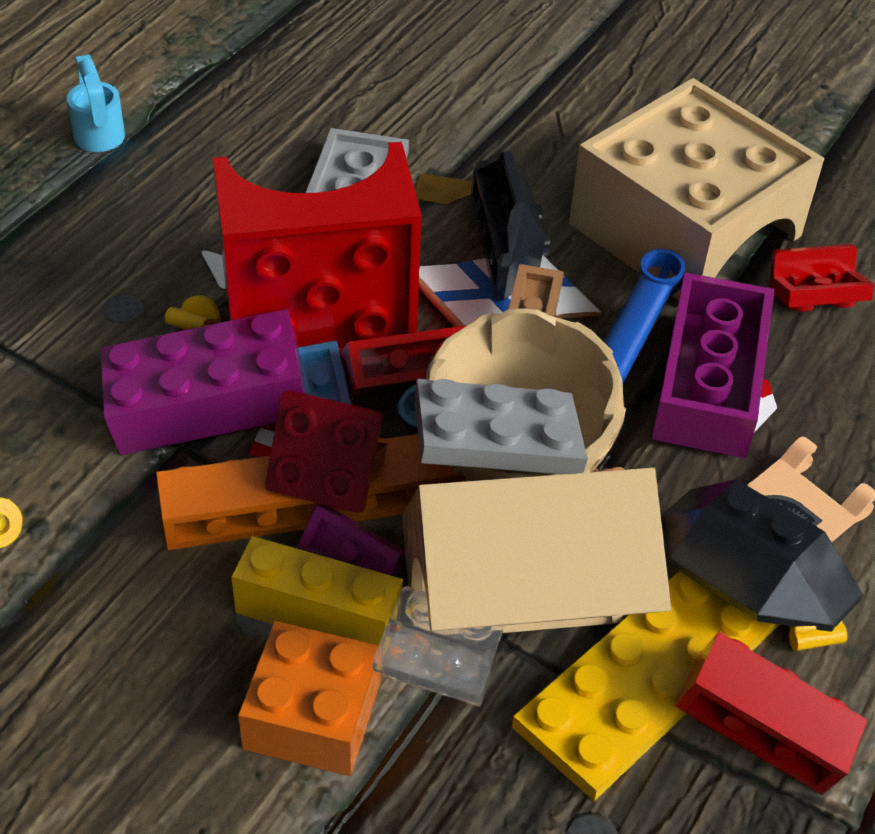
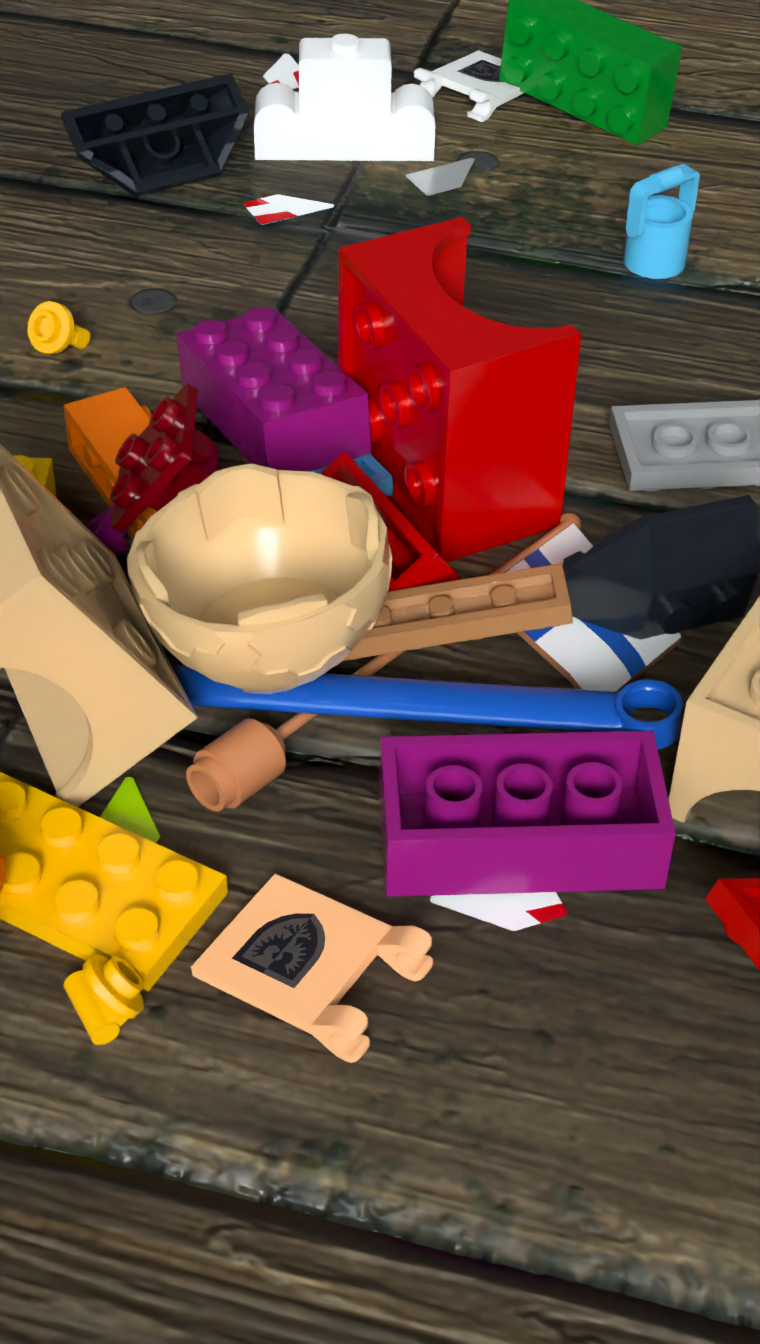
camera: 75 degrees right, 5 degrees down
(498, 427) = (170, 526): light grey plate -> none
(759, 556) = (143, 883): black wedge -> none

